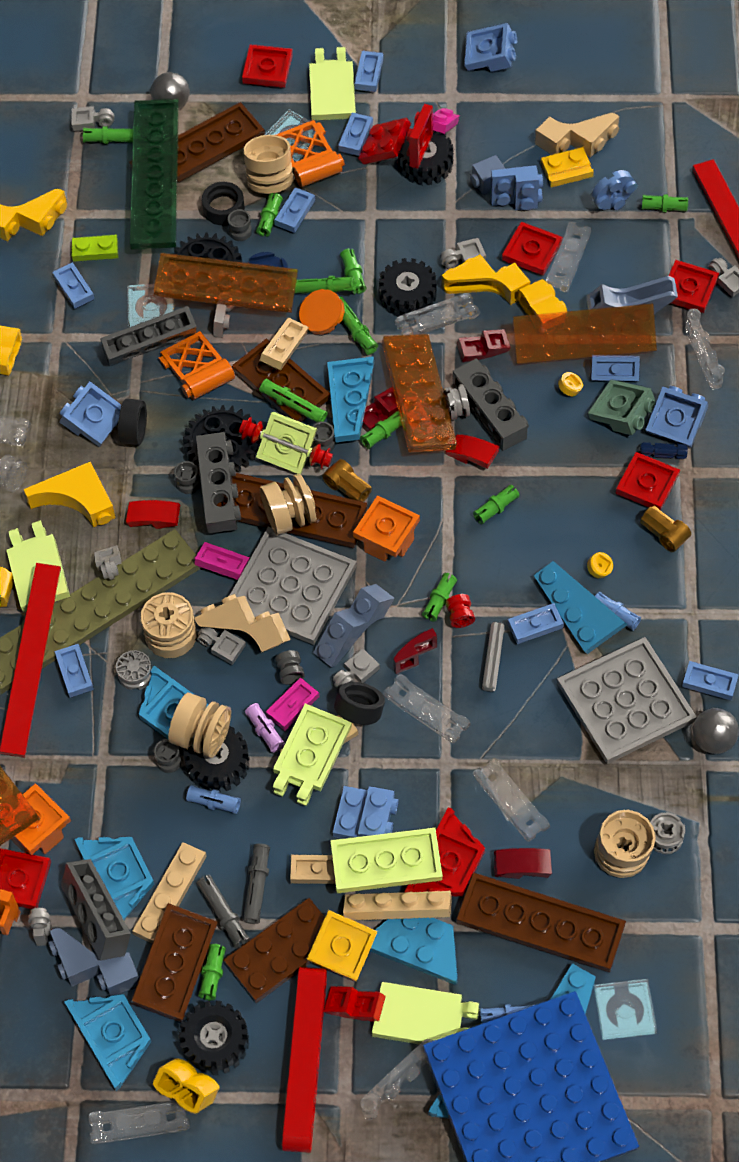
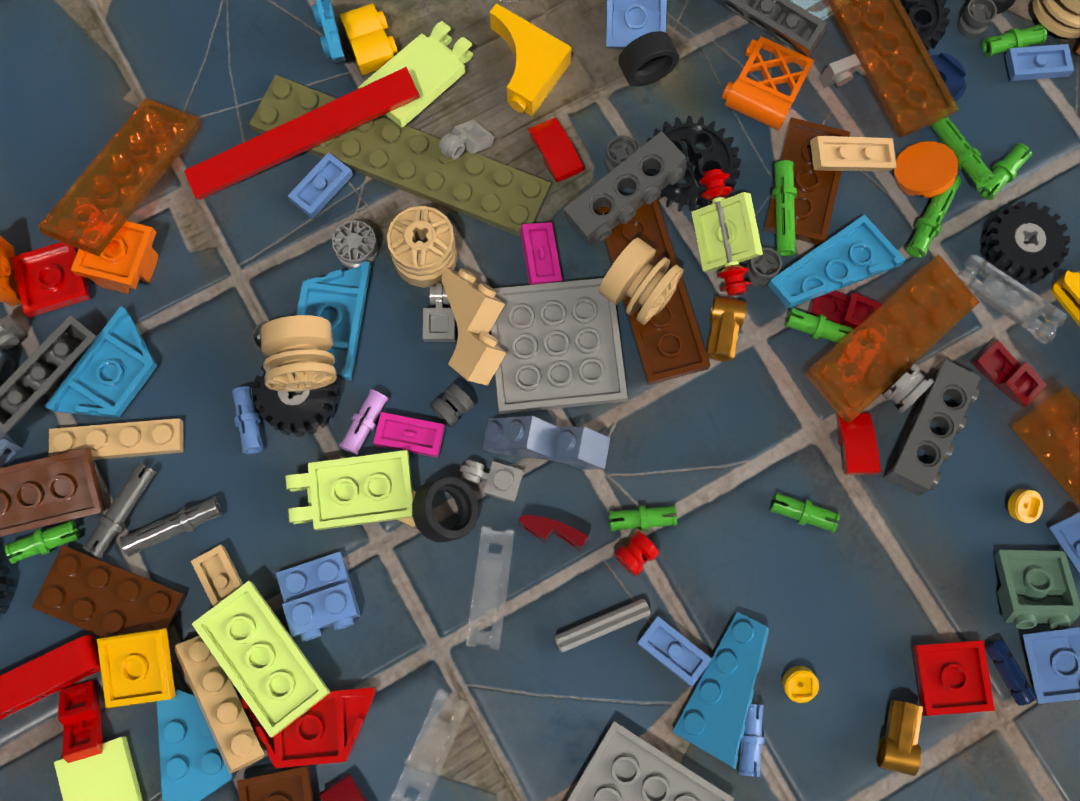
camera: 55 degrees right, 15 degrees up
(386, 529) = (688, 407): orange panel -> none

